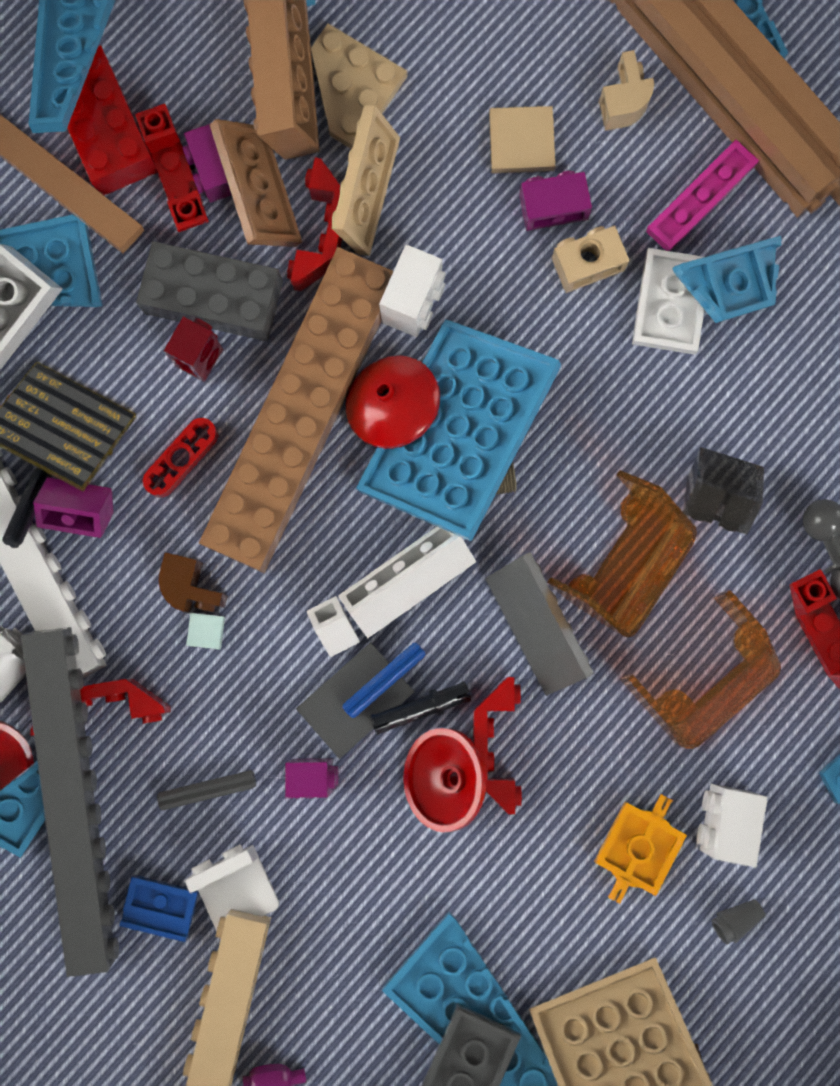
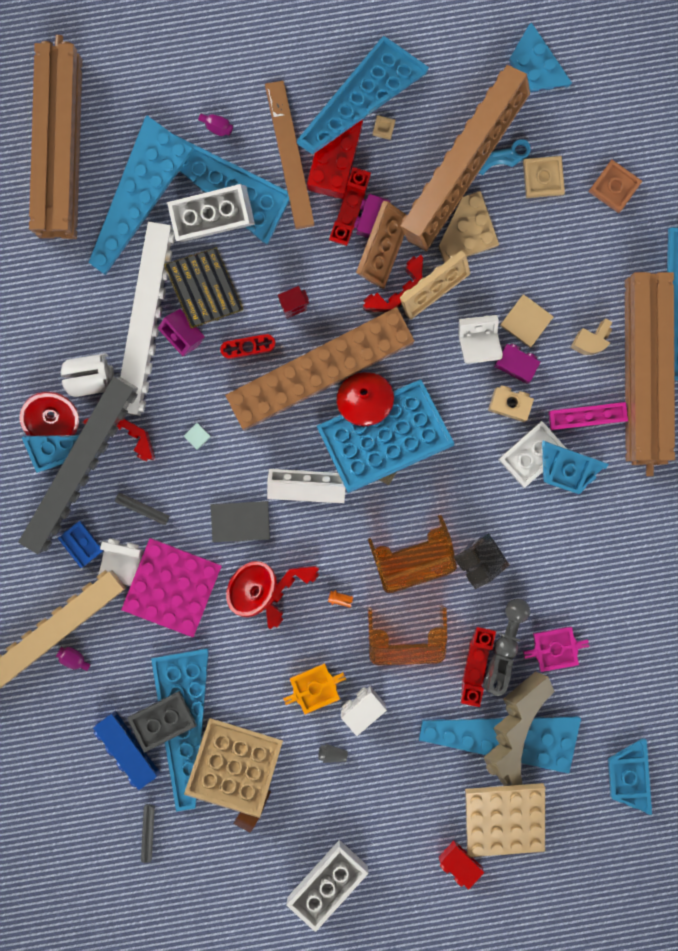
camera: 30 degrees right, 5 degrees up
(25, 511) = (158, 316): black axle -> none
(138, 41) = (383, 127): none -> tan tile
(179, 585) = (201, 406): reddish brown brick -> none
(216, 289) = (322, 279): dark grey brick -> none
(310, 778) = (192, 541): magenta brick -> none
(332, 868) = (171, 587): none -> dark pink plate
(334, 633) = (256, 481): white brick -> none
(384, 680) = (260, 523): blue axle -> none
(411, 291) = (415, 354): white brick -> none
(419, 708) = (274, 551): black pin -> none
(479, 205) = (479, 339): none -> white bracket
(539, 624) = (349, 554): dark grey tile -> none
(575, 696) = (340, 599): none -> orange pin

